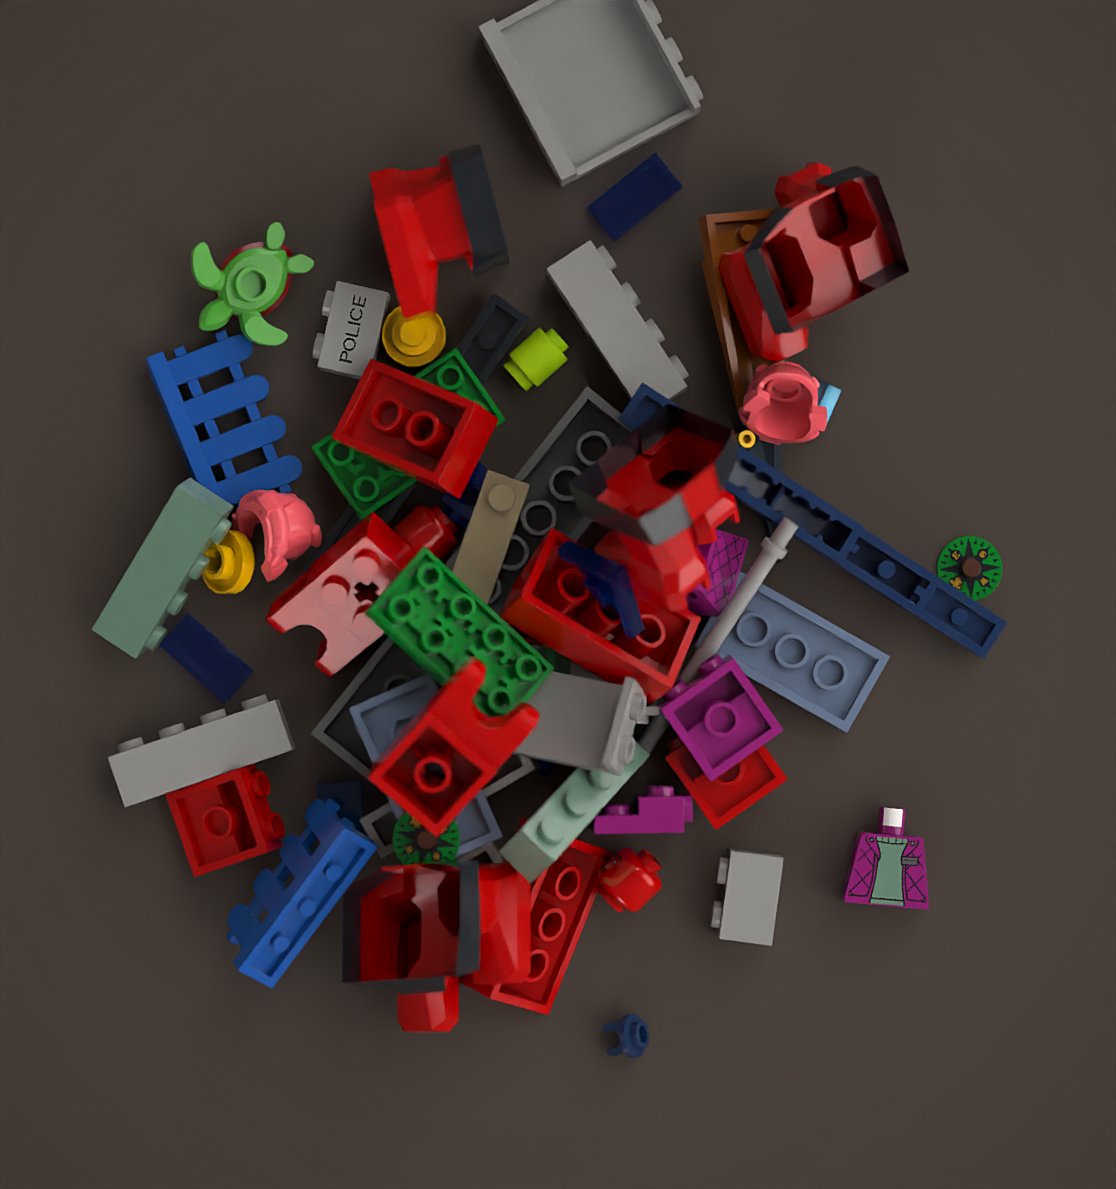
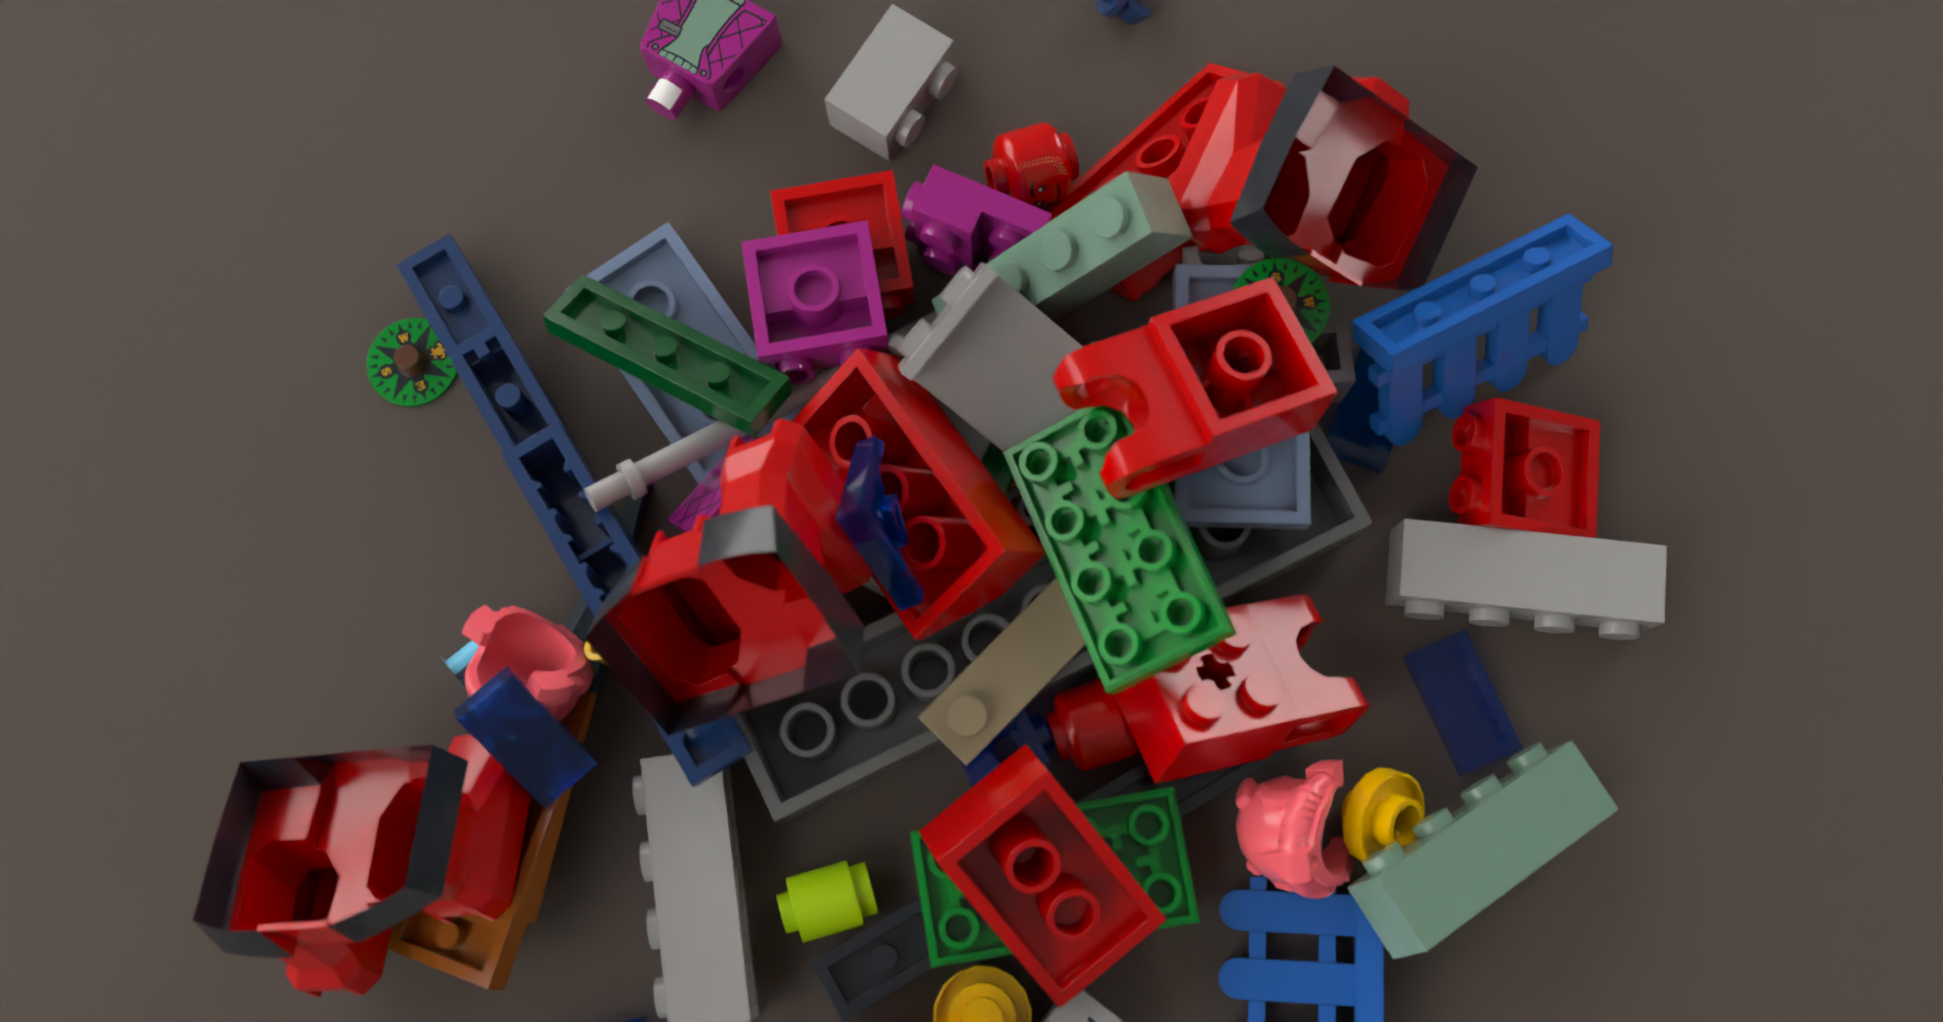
camera: 155 degrees left, 10 degrees down
(757, 365) = (525, 737): none -> clear blue tile
(795, 637) = (668, 355): none -> dark green plate

